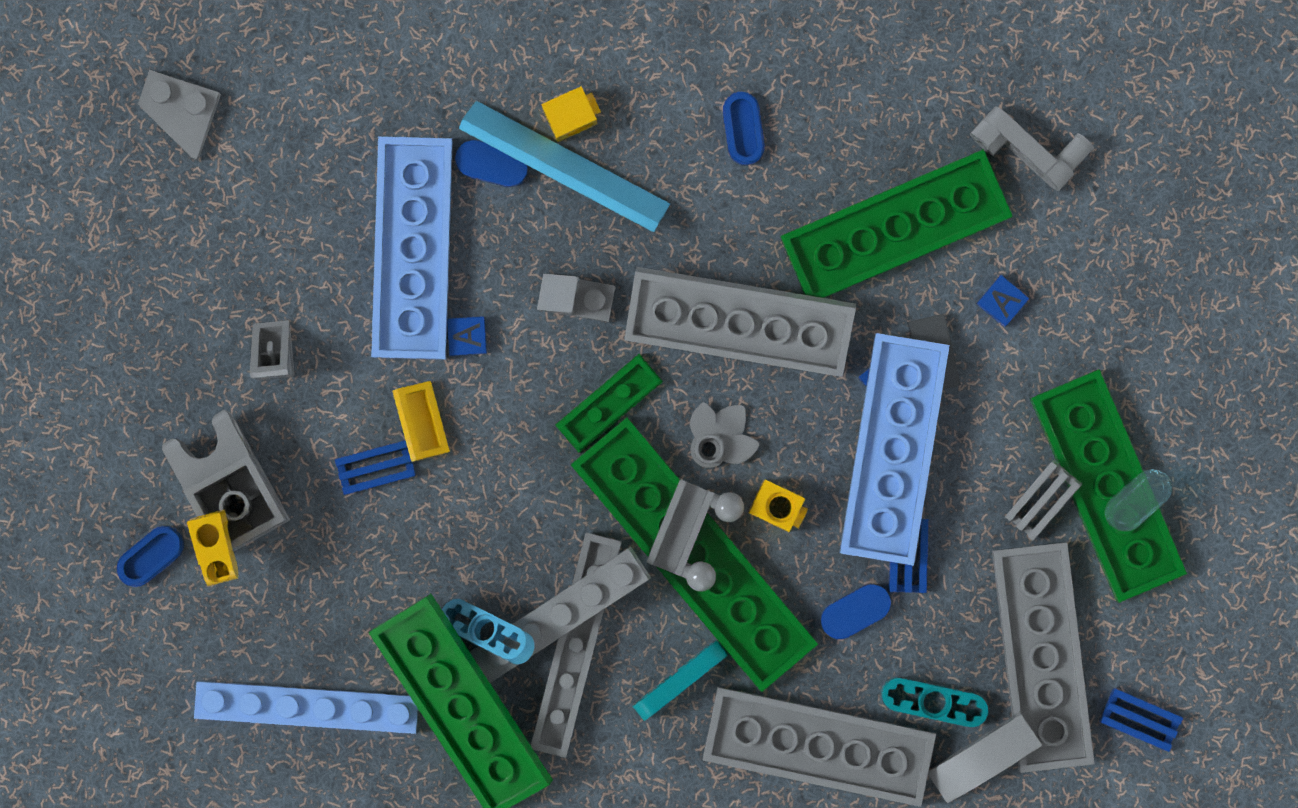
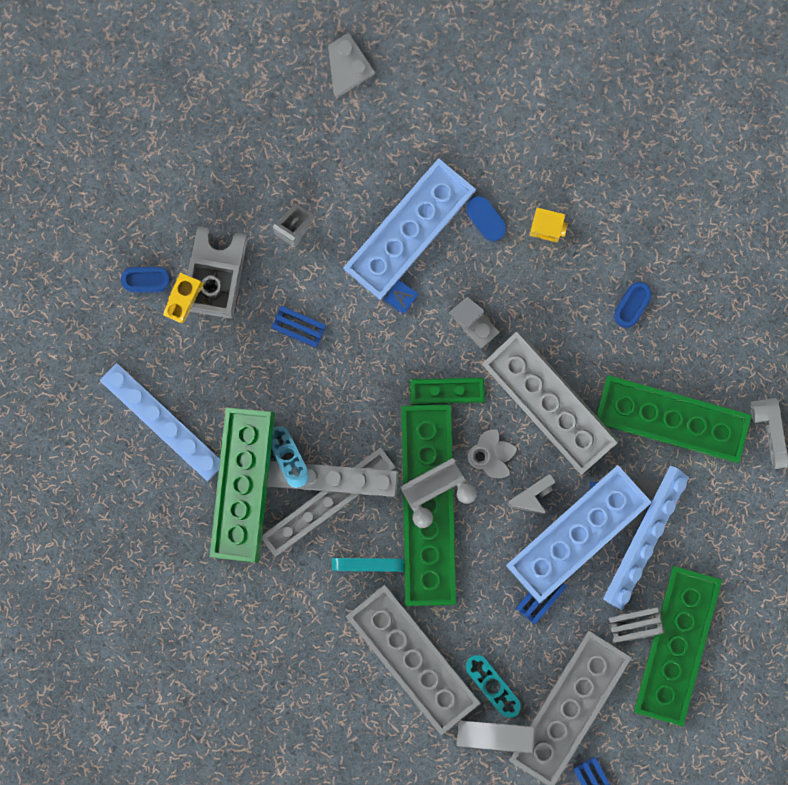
camera: 40 degrees right, 5 degrees down
(421, 421) = (341, 321): yellow tile -> none
(564, 166) = (523, 250): medium azure tile -> none
(766, 494) = (492, 504): yellow brick -> none
(802, 456) = (527, 499): none -> light grey slope
(855, 611) = (489, 604): blue tile -> none
(974, 390) = (646, 538): none -> light blue plate
(1002, 301) = (698, 503): blue tile -> none
(1138, 500) = (687, 665): clear light blue tile -> none

